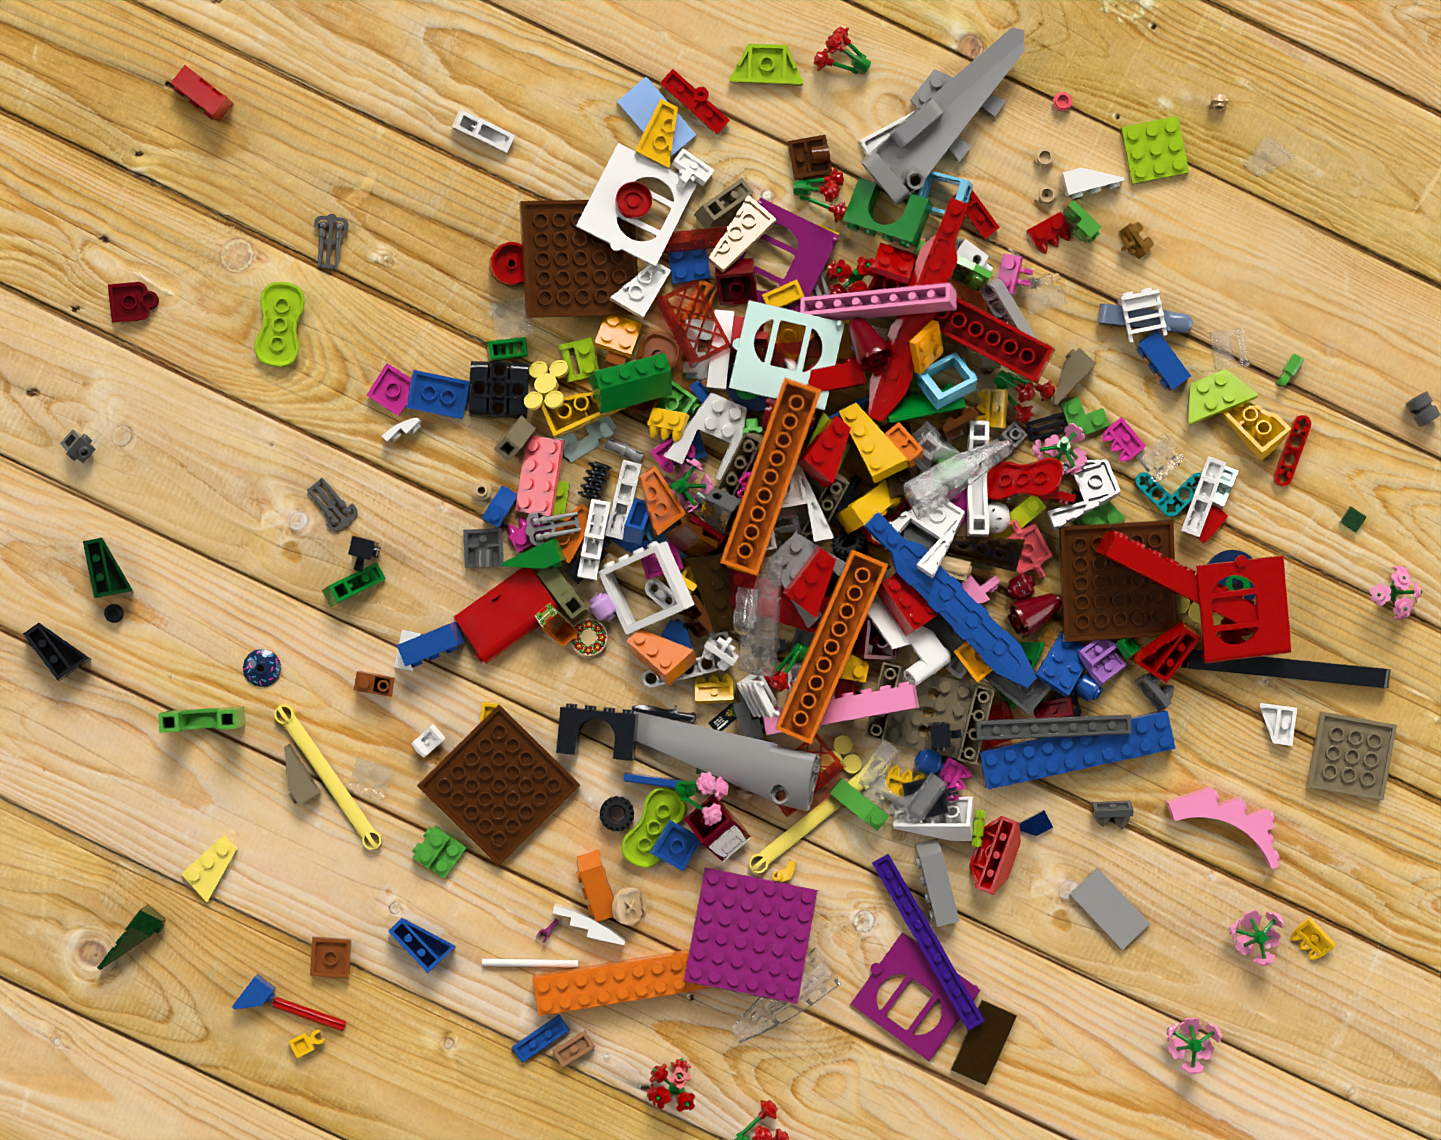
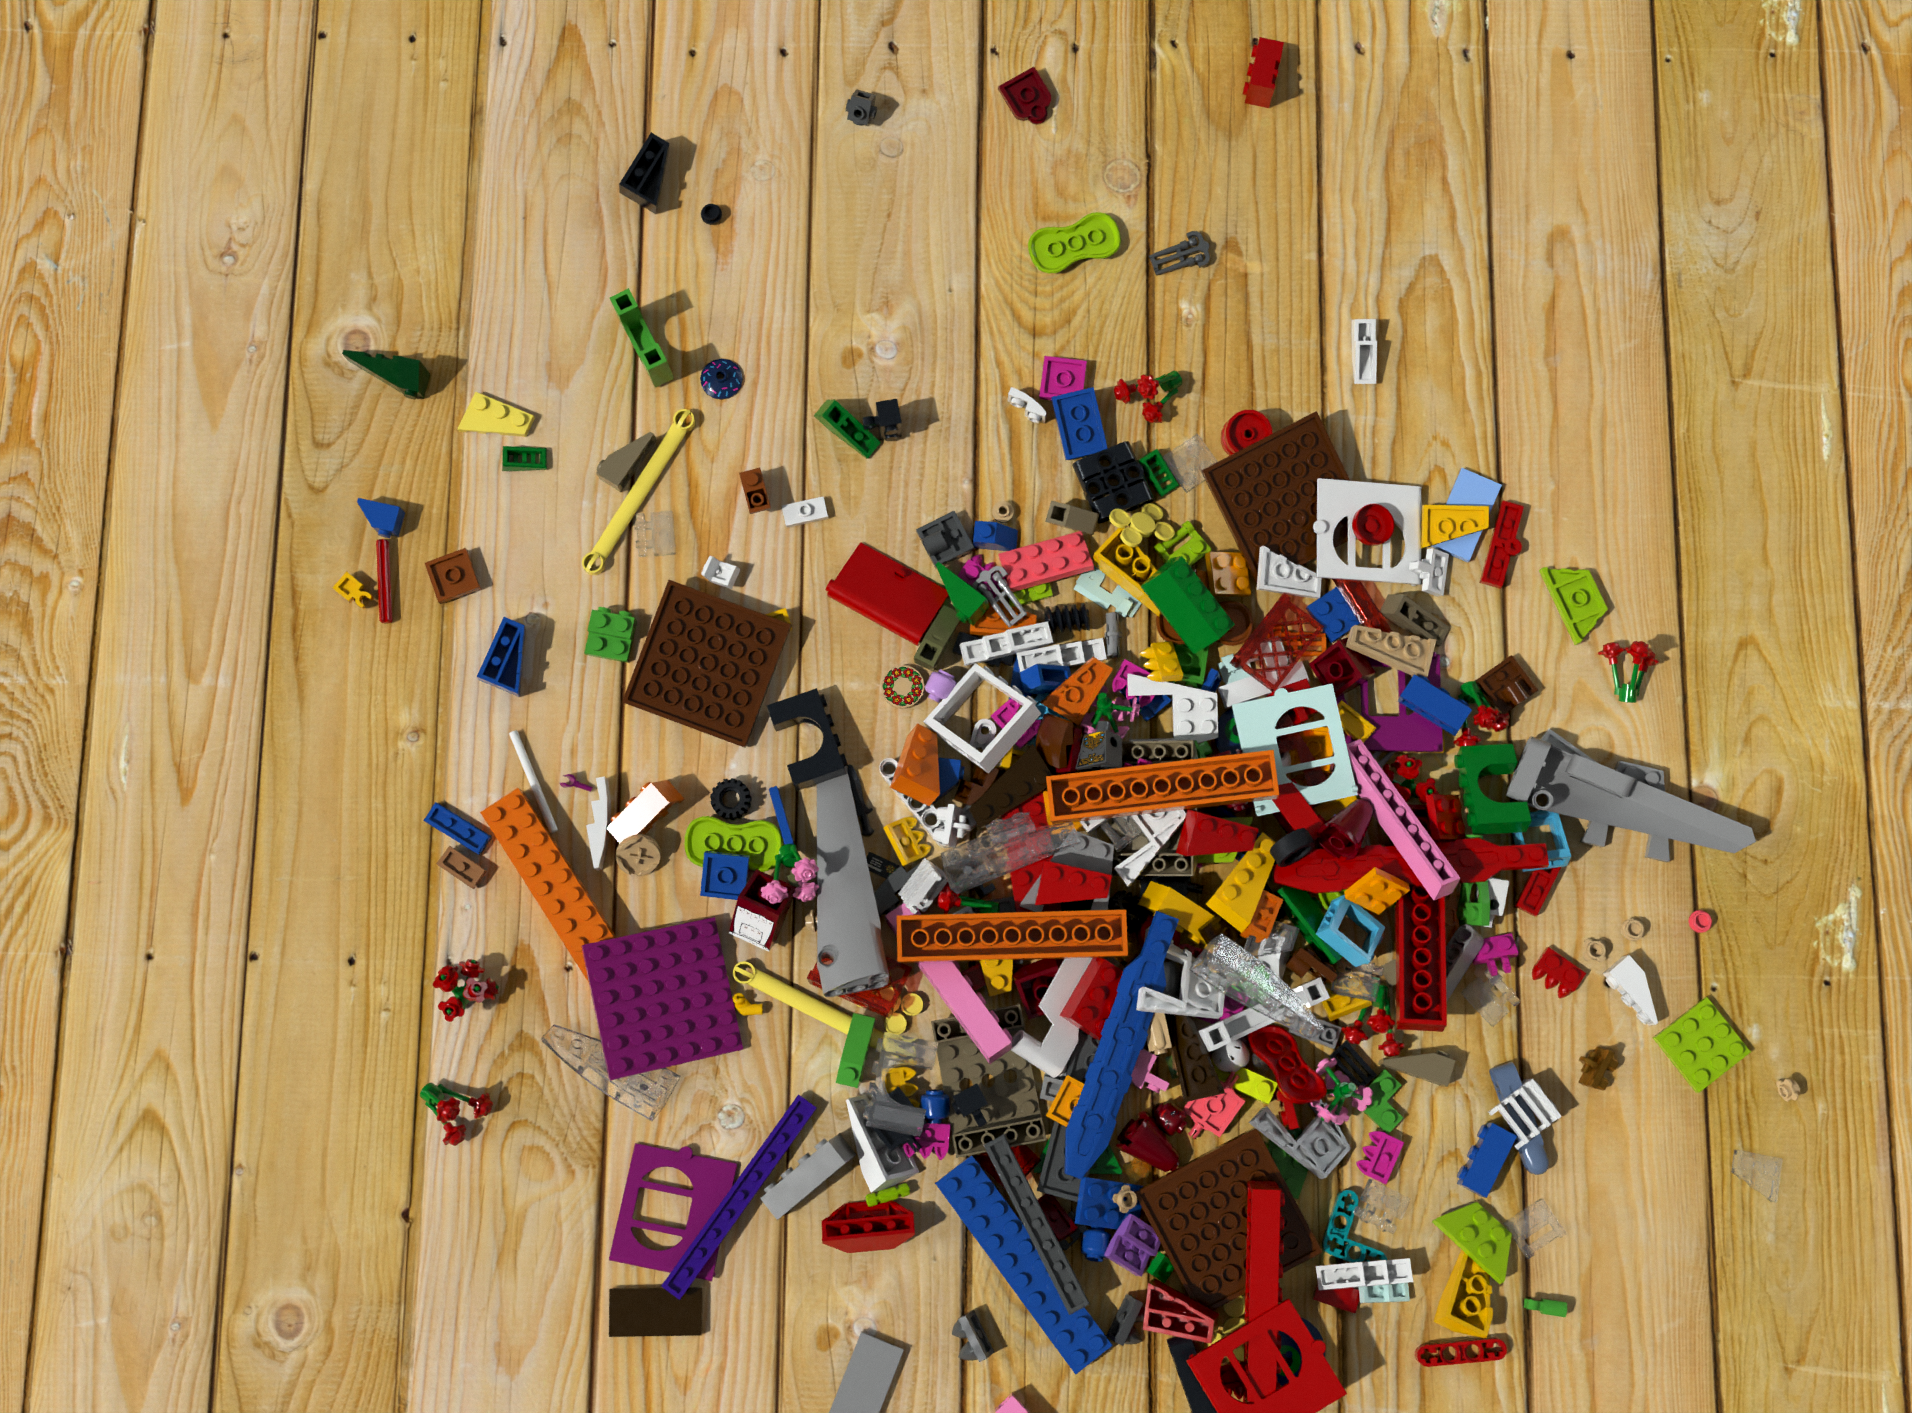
camera: 65 degrees right, 10 degrees down
(104, 570) = (750, 183): dark green wedge -> none
(256, 875) = (524, 451): none -> green slope
(345, 521) = (907, 394): dark grey piece -> none
(431, 644) = (822, 529): blue wedge -> none
(435, 326) = (1148, 389): none -> red plant
(561, 635) = (890, 656): orange piece -> none
(800, 223) = (1435, 704): none -> blue brick
(863, 396) = (1292, 847): none -> black tyre
(988, 394) = (1357, 985): none -> clear plate
(1036, 824) = (920, 1257): clear blue tile -> none
(1069, 646) = (1131, 1199): none -> tan plate
(1086, 226) = (1586, 1006): bright green plate -> none

